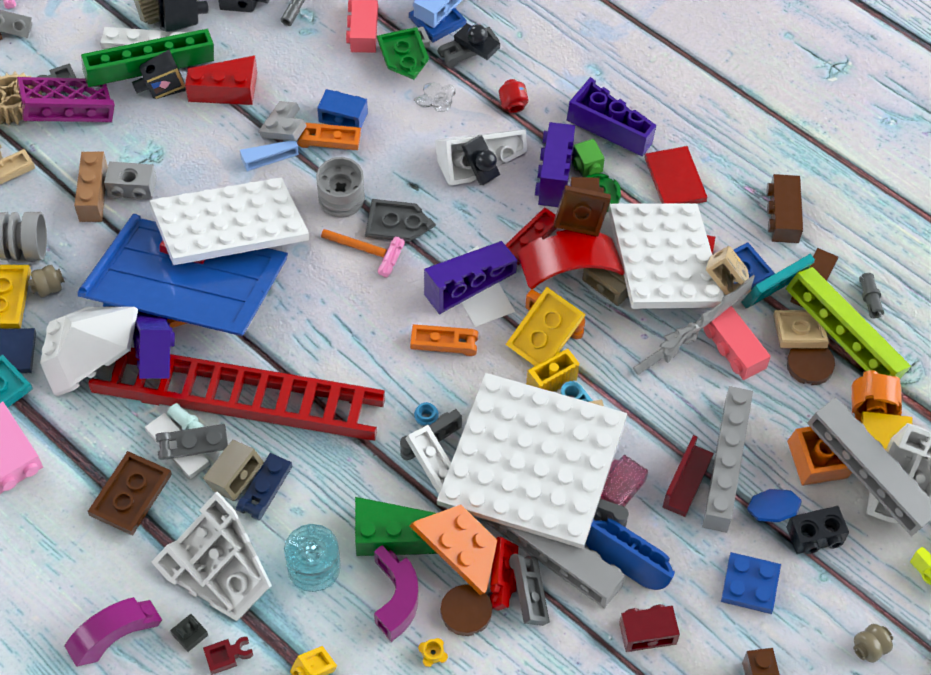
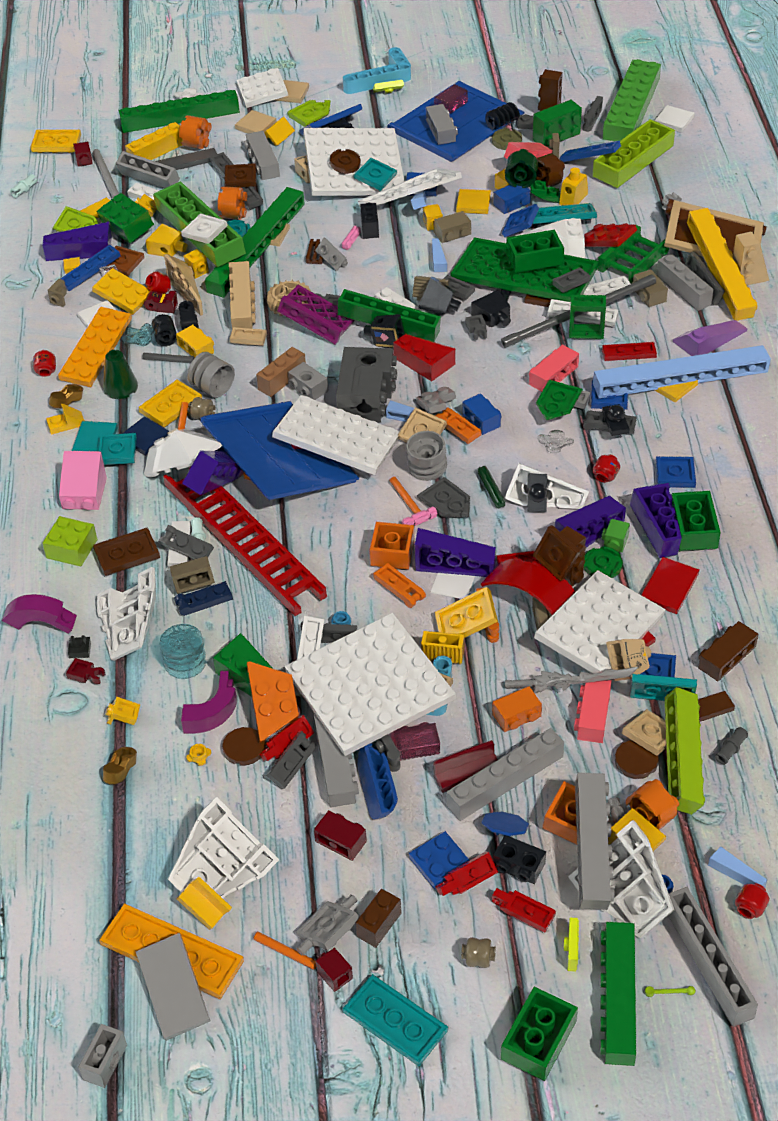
camera: 45 degrees right, 10 degrees down
(36, 304) = (183, 415): none -> orange piece
(57, 524) = (70, 541): none -> lime brick
(198, 144) = (366, 381): none -> dark grey piece
(242, 17) = (476, 325): none -> dark grey plate
(300, 161) = (421, 421): none -> tan tile
(401, 302) = (392, 545): none -> orange brick
(425, 181) = (491, 487): none -> dark green axle
(571, 62) = (676, 471): none -> blue tile
(646, 95) = (696, 520): none -> green brick
(673, 389) = (516, 709): none -> orange brick
(791, 579) = (468, 875): none -> red hinge
(865, 572) = (524, 909): none -> red hinge

